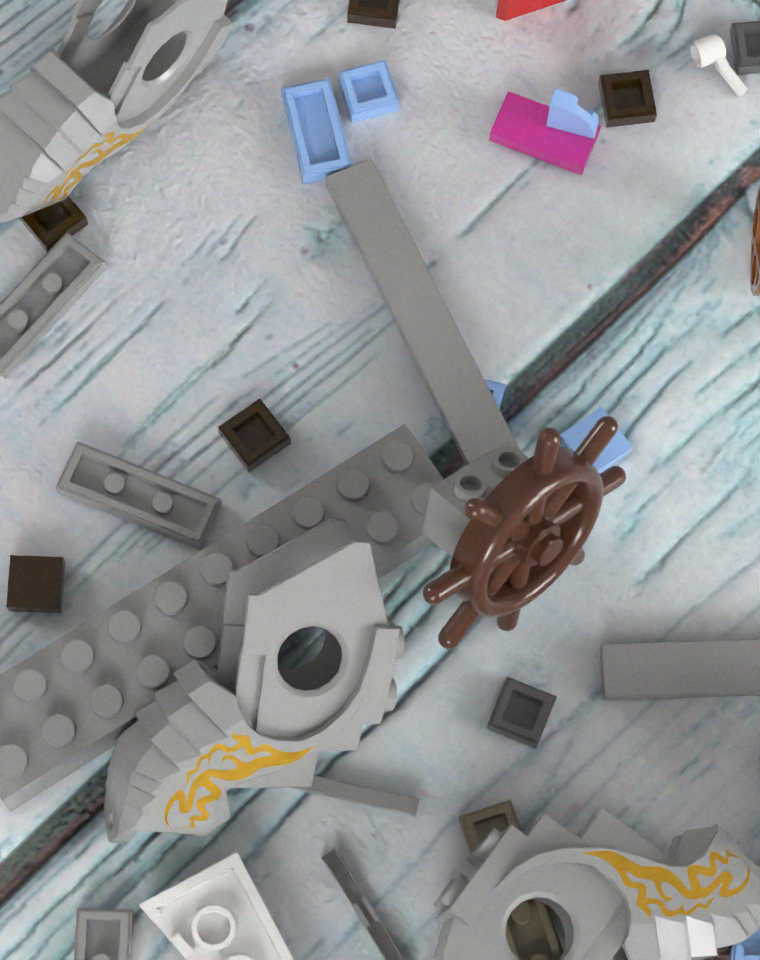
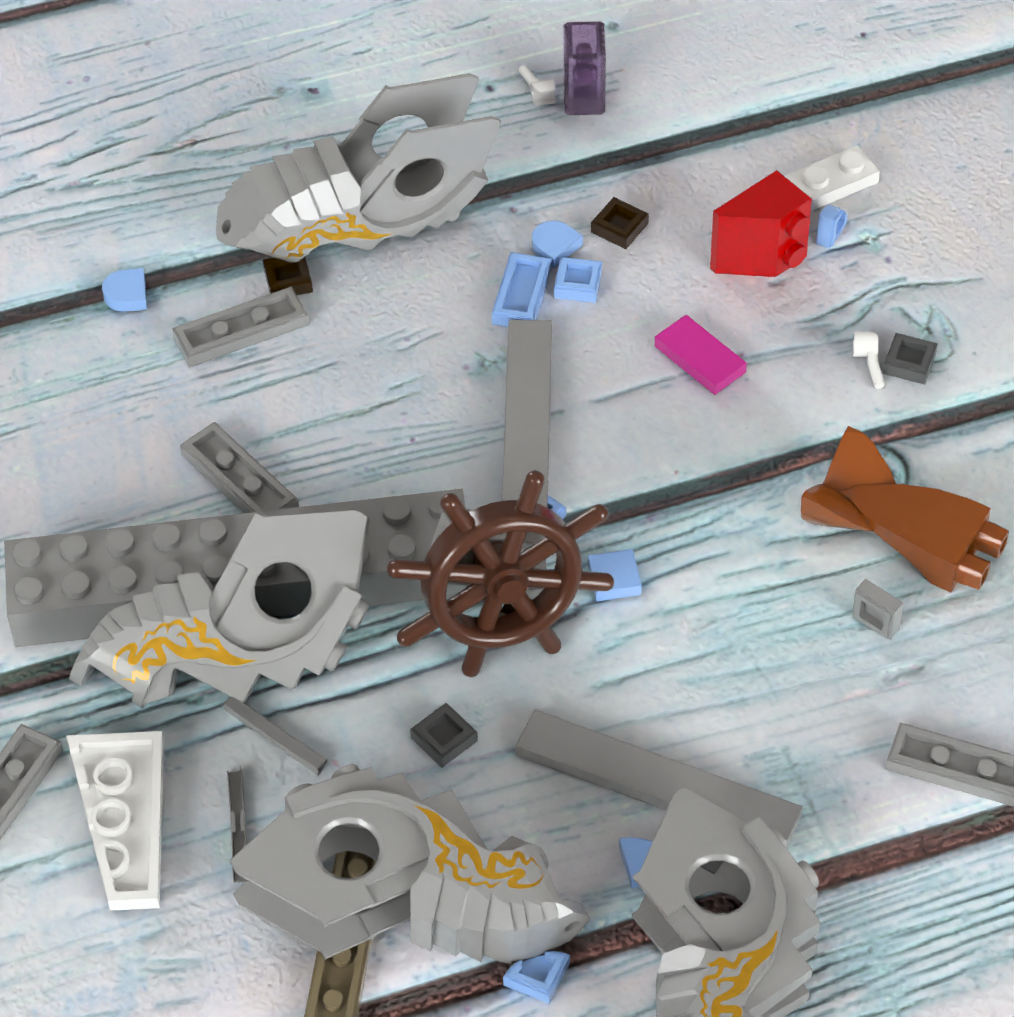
camera: 30 degrees right, 20 degrees down
(35, 584) = (126, 502): dark brown tile -> none
(254, 435) = (350, 470): dark brown tile -> none
(319, 53) = (555, 240): none -> light blue tile
(569, 117) = (720, 342): light blue tile -> none
(627, 98) = (781, 355): dark brown tile -> none

